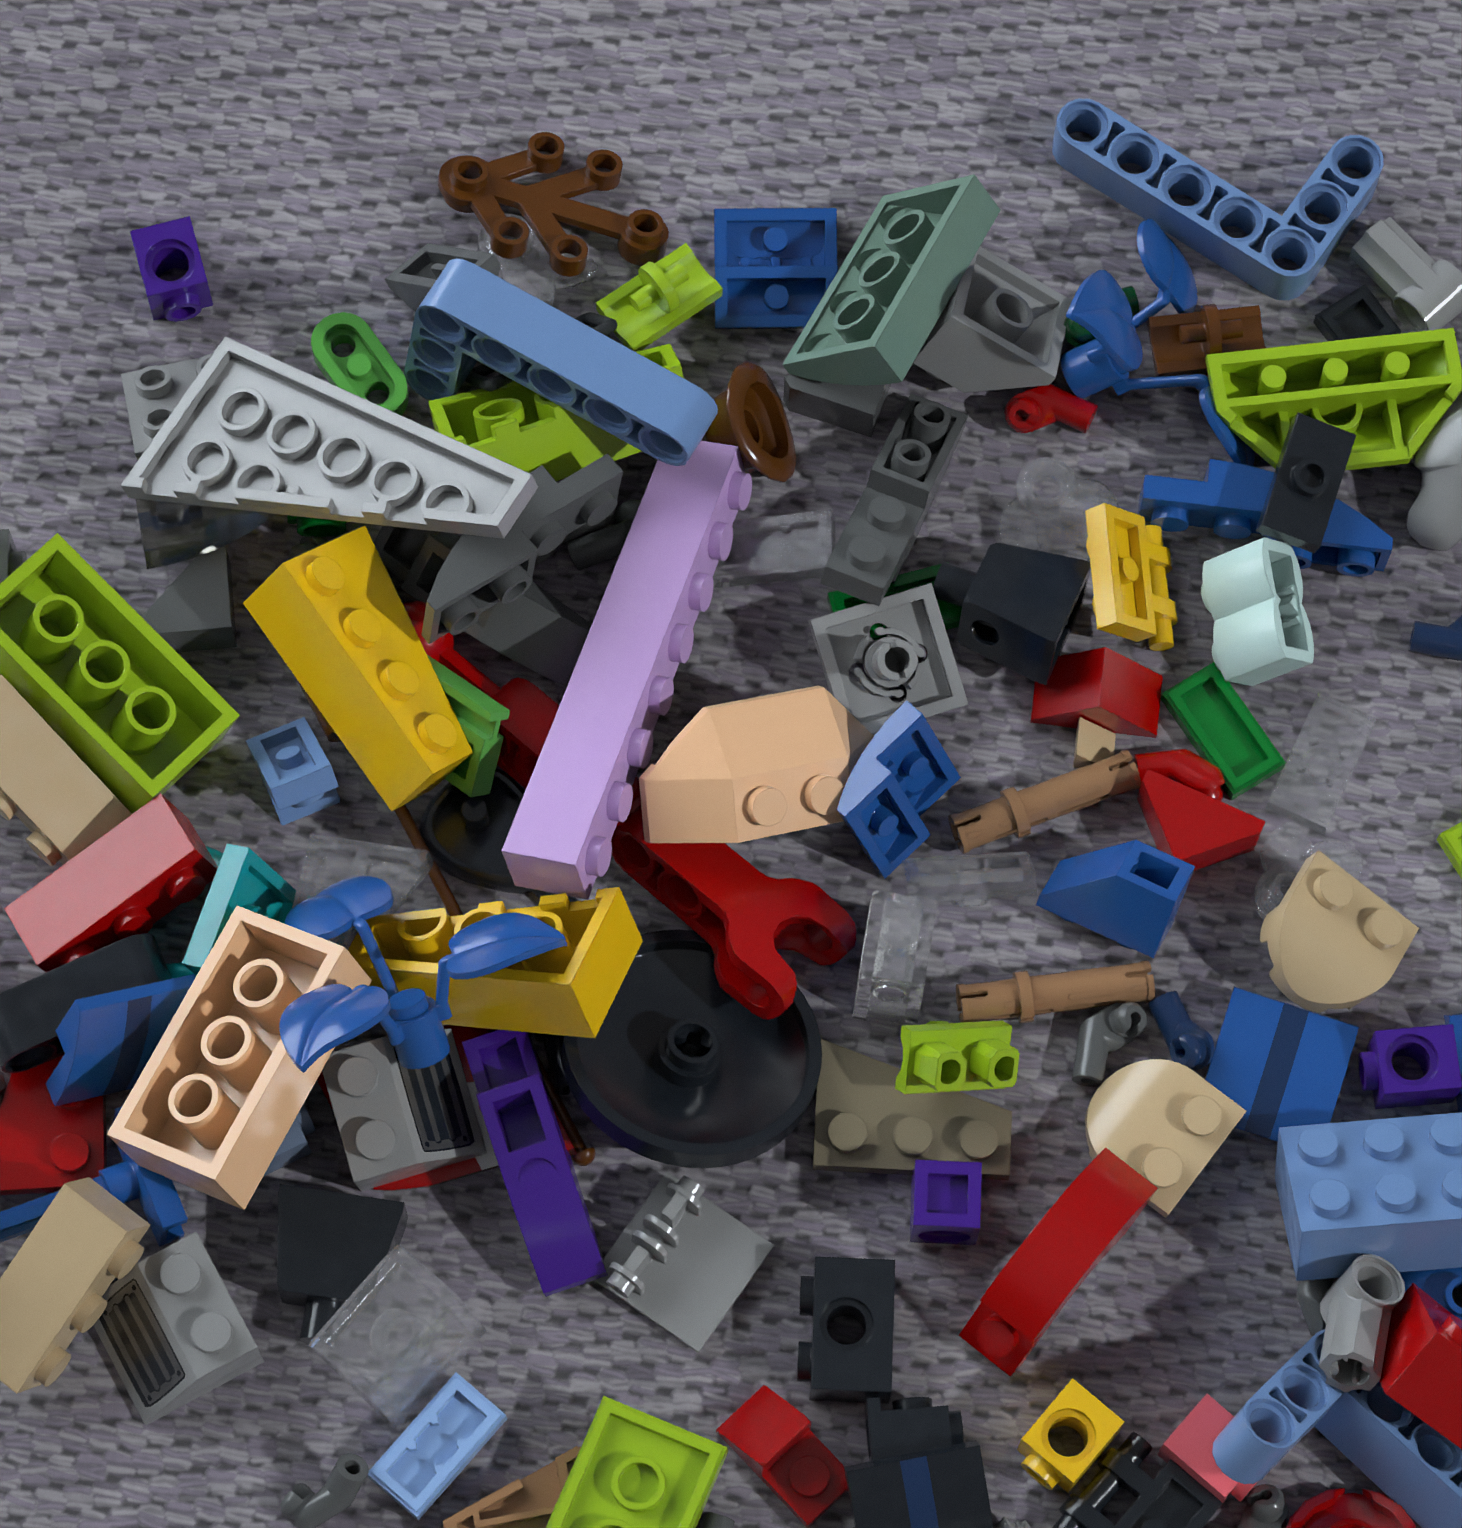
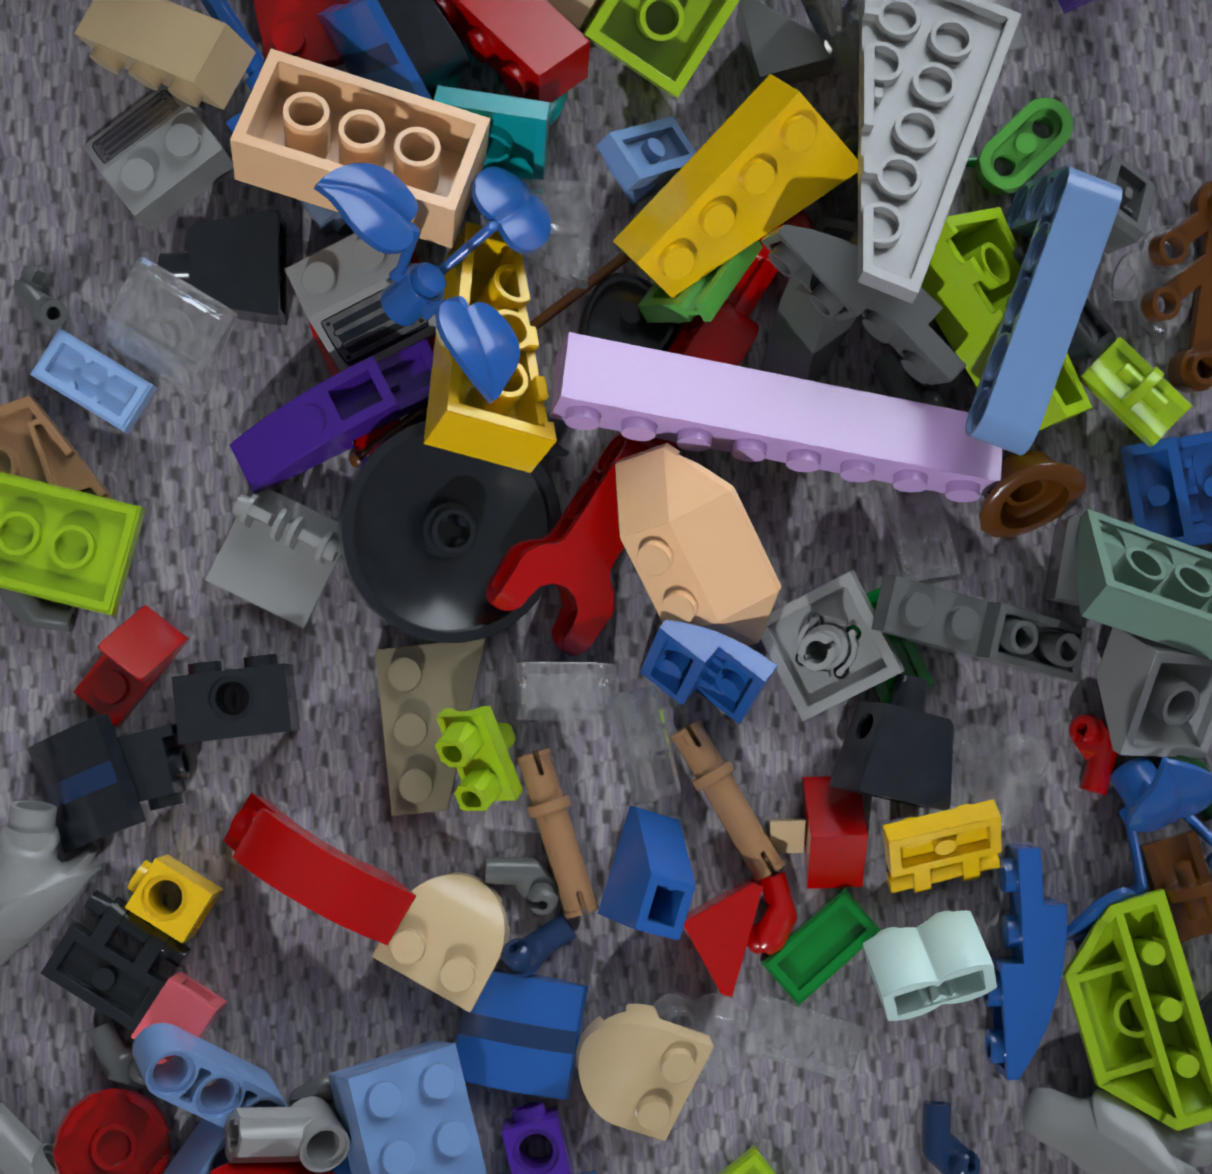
camera: 80 degrees right, 15 degrees up
(945, 1202) = (350, 766): dark purple brick -> none
(1305, 483) = (1055, 995): black plate -> none

